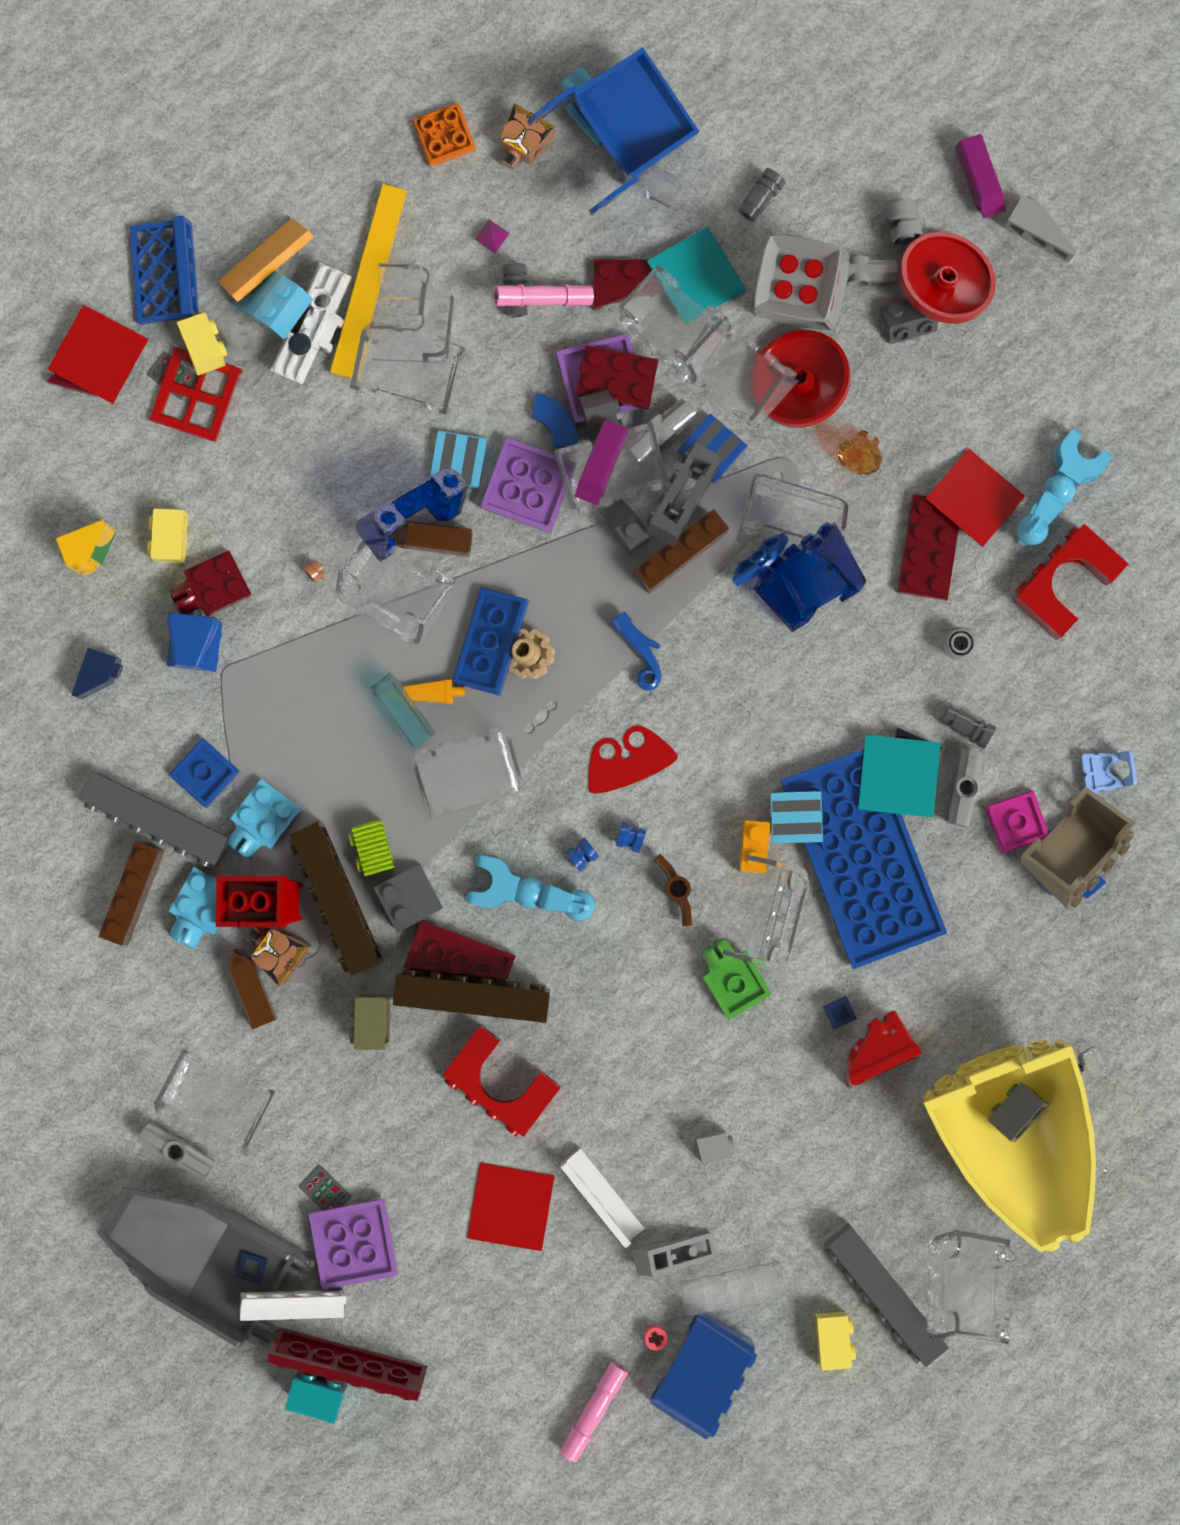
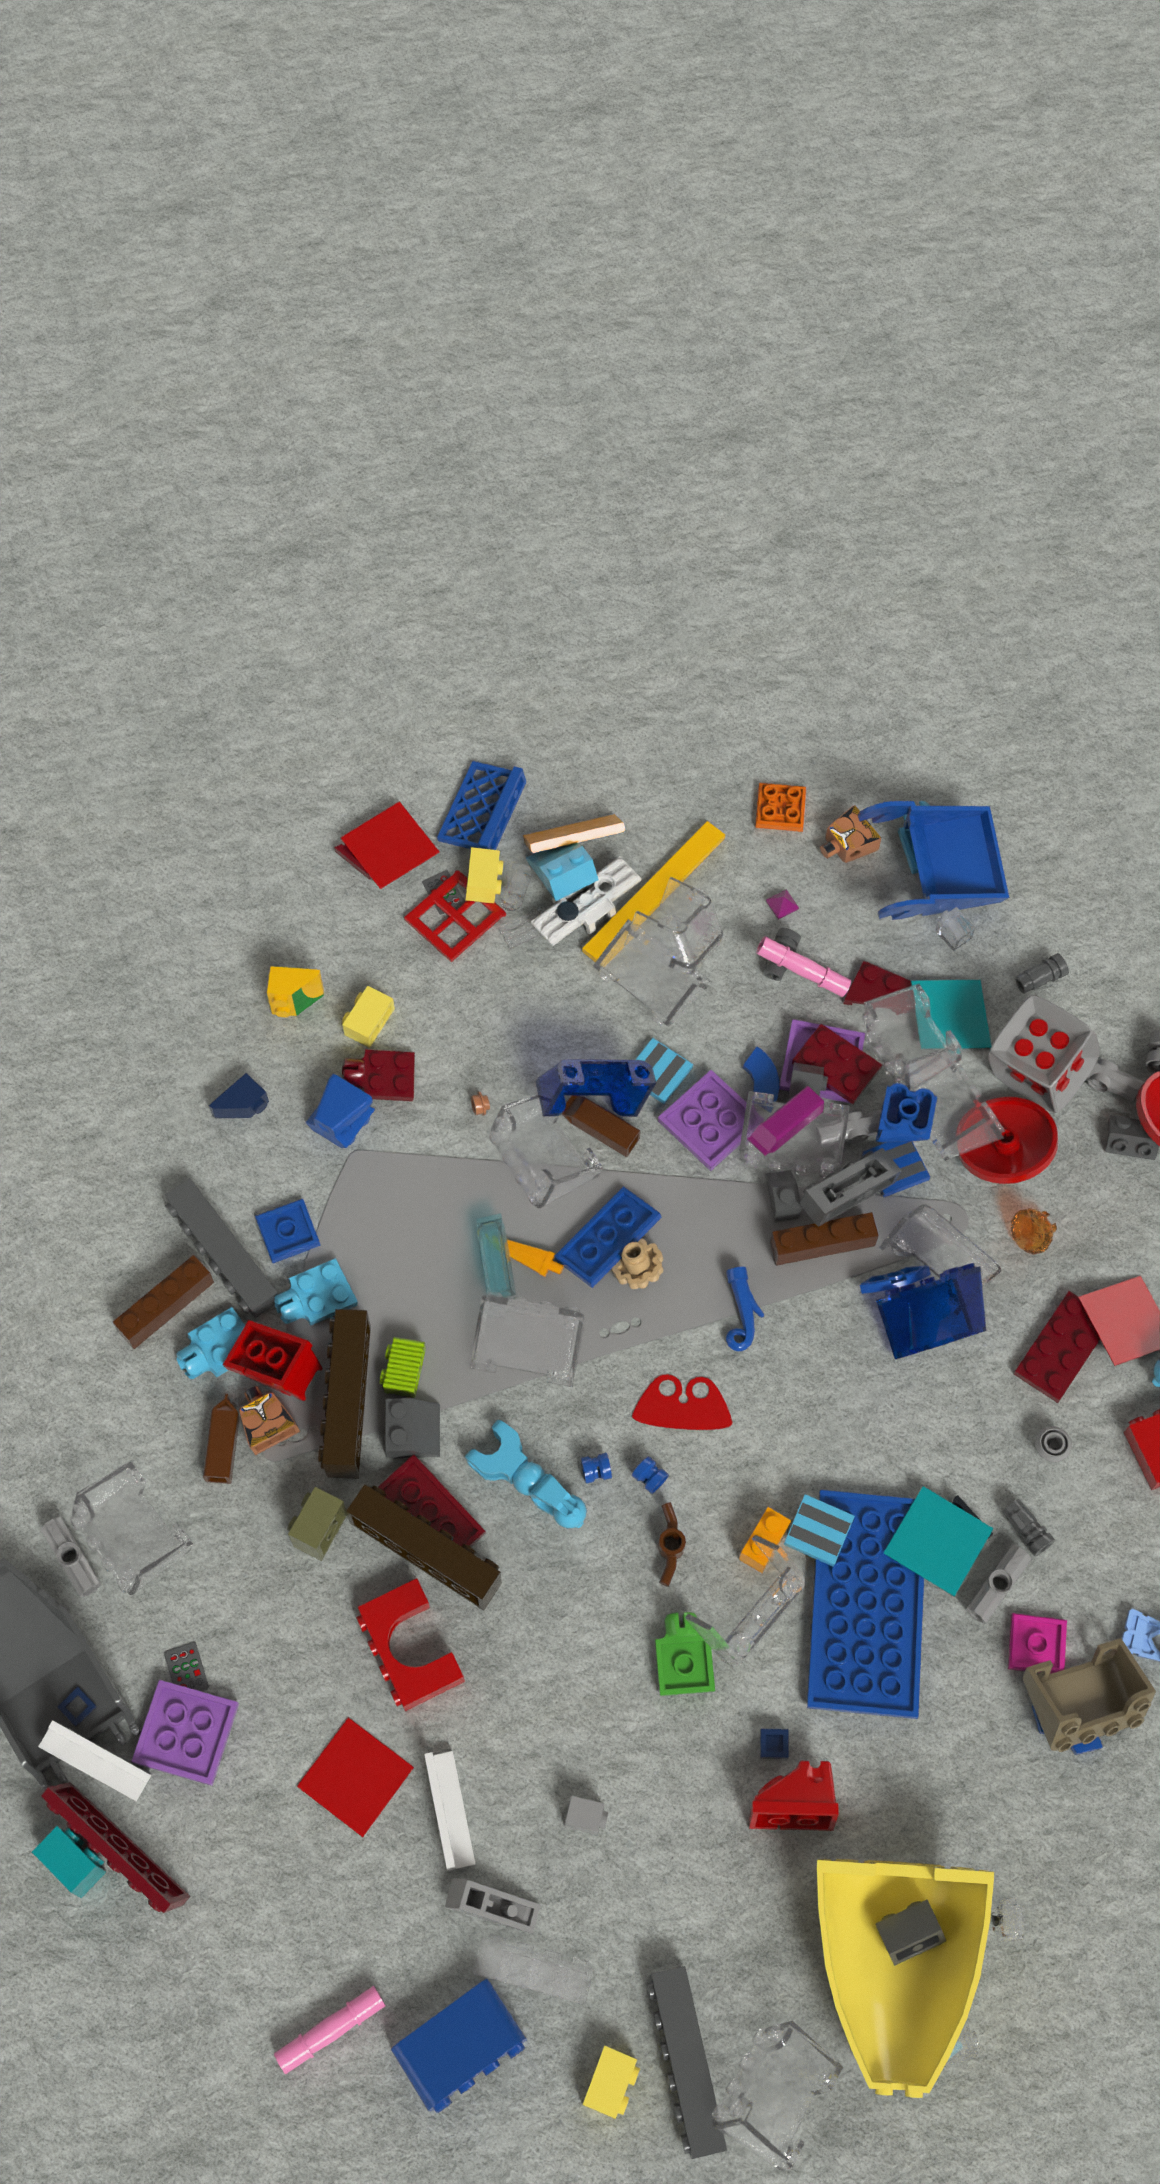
camera: 30 degrees right, 20 degrees down
(660, 1331) = (438, 1979): coral bush -> none
(704, 402) = (906, 1114): none -> blue piece

